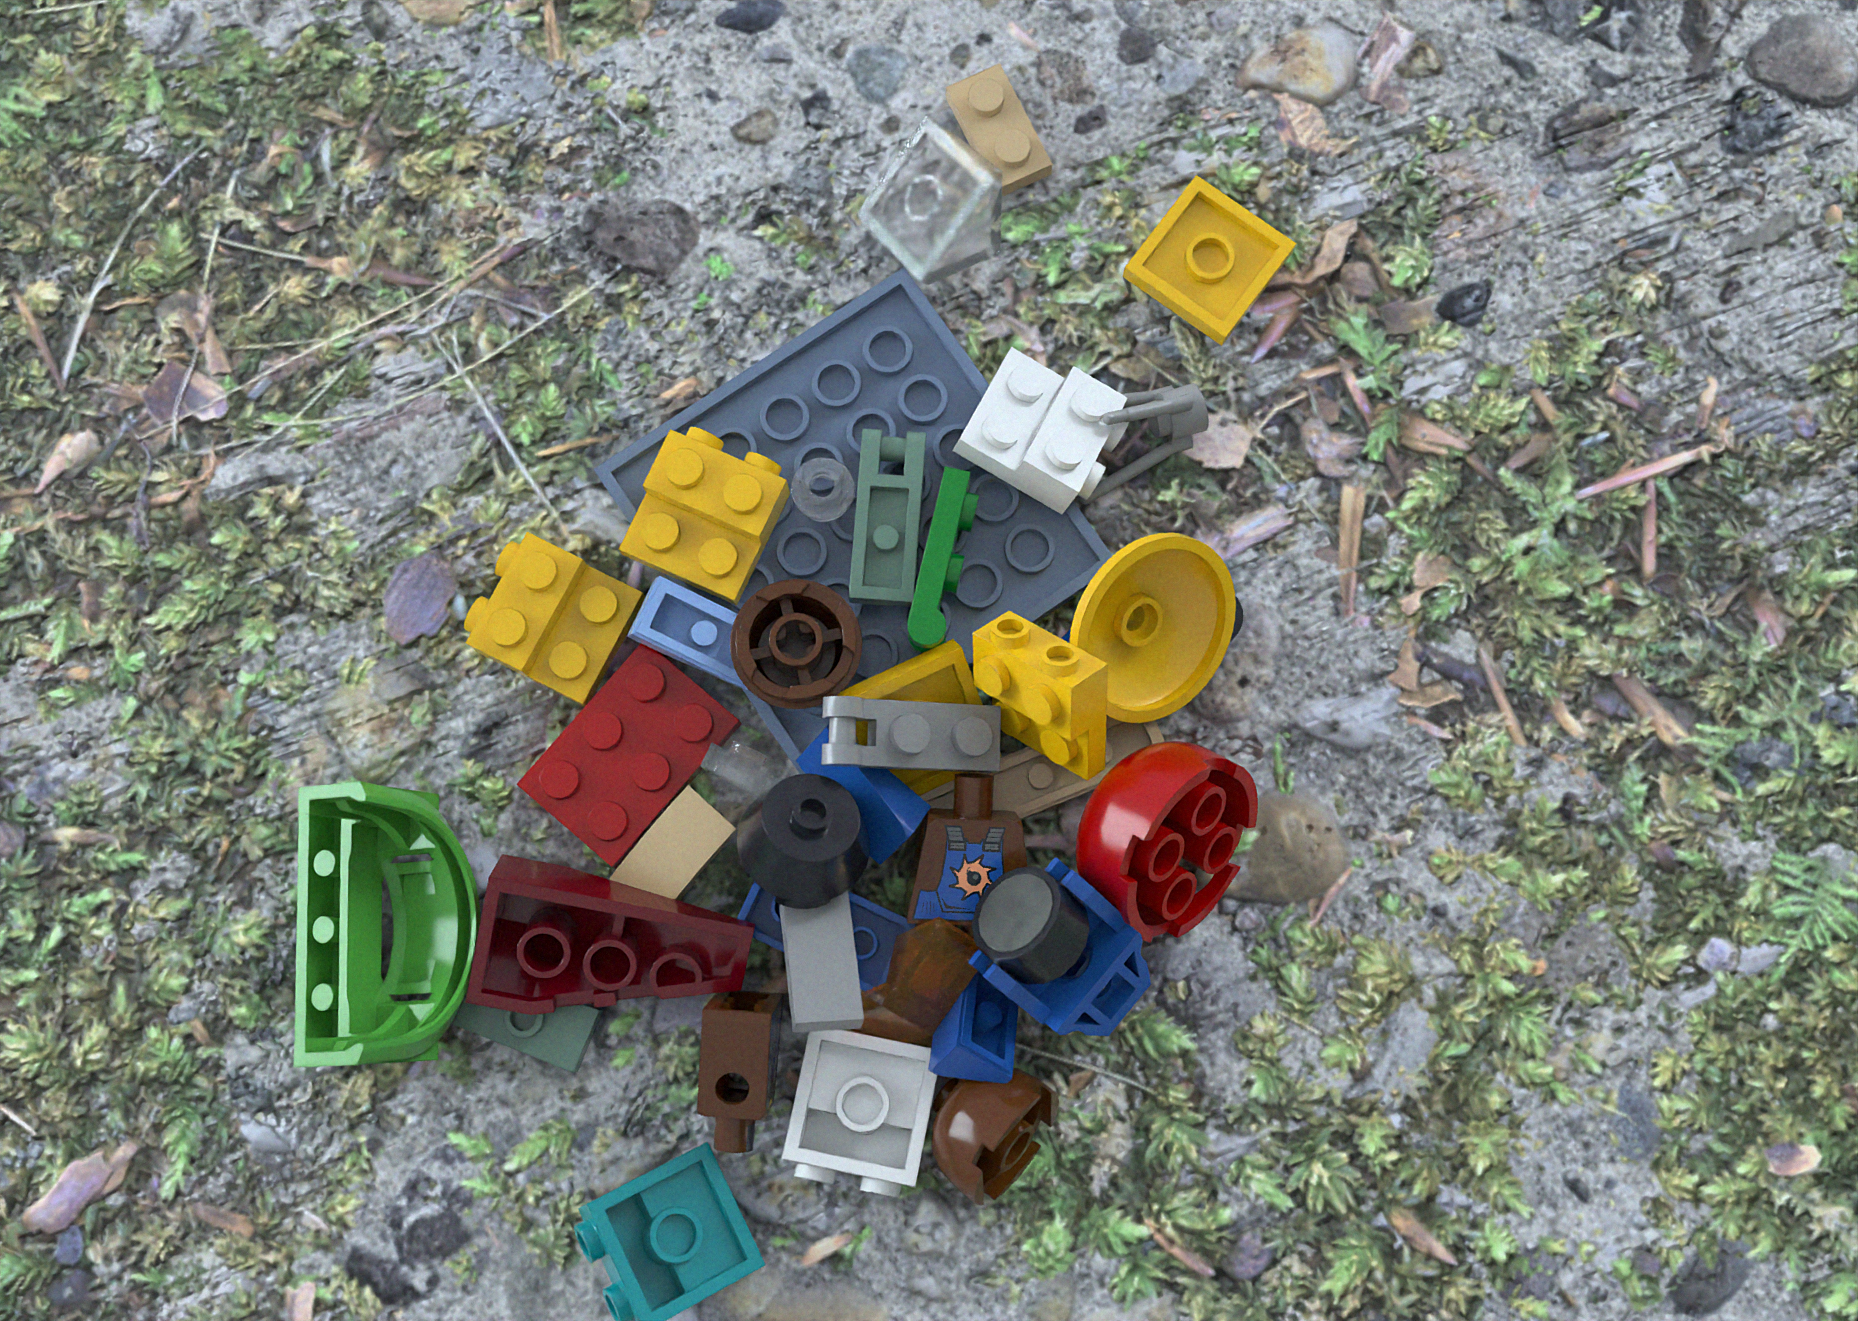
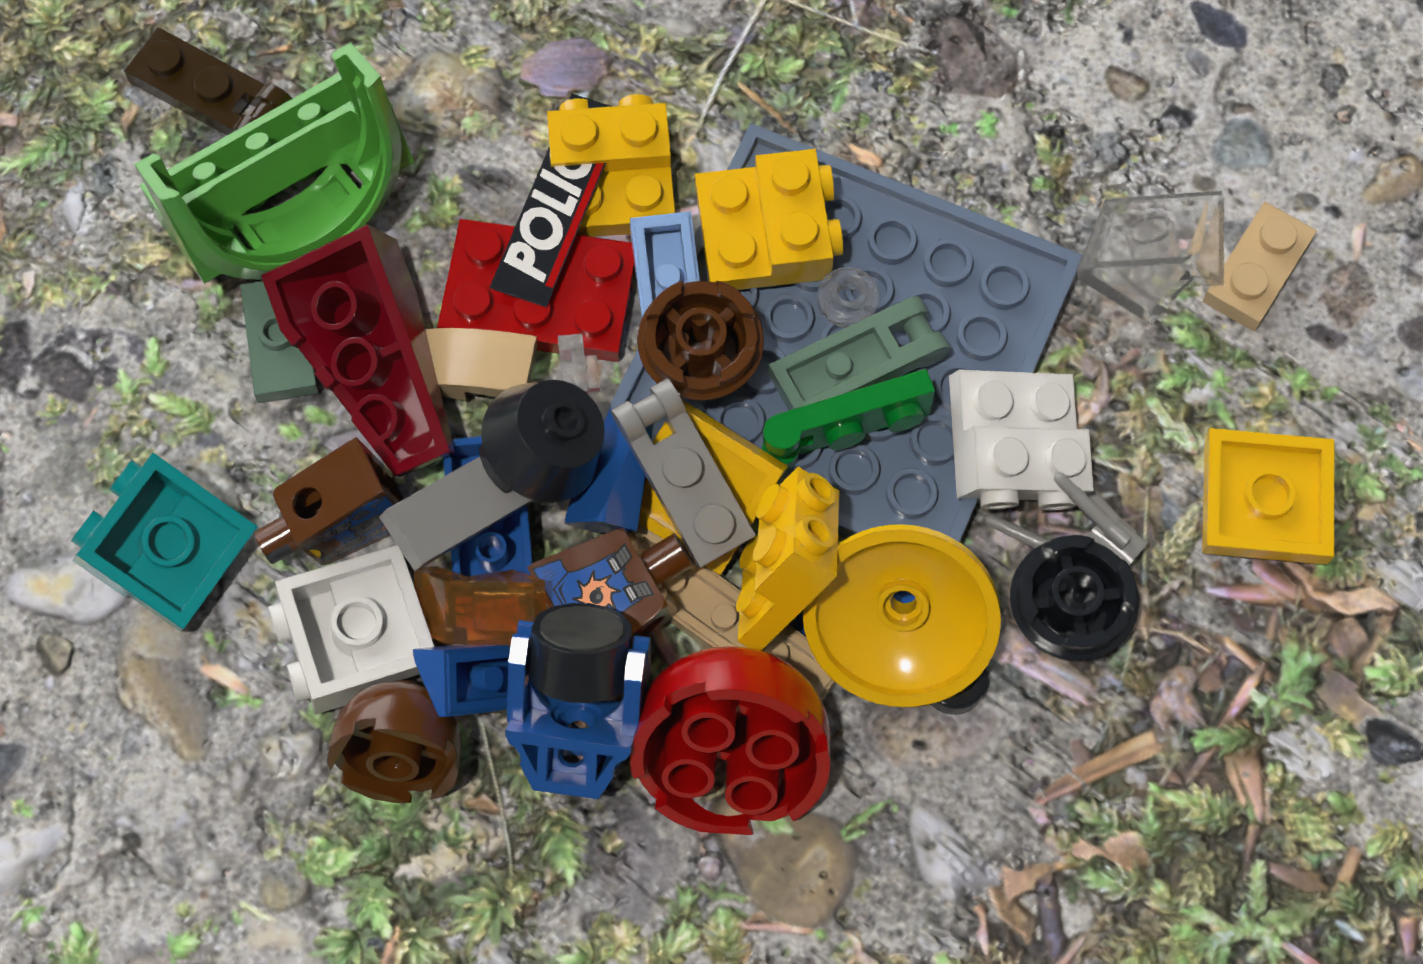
camera: 55 degrees right, 10 degrees down
(217, 944) = (200, 83): none -> dark brown plate
(580, 710) = (547, 228): none -> sticker
(1215, 474) = (1074, 598): none -> black cone

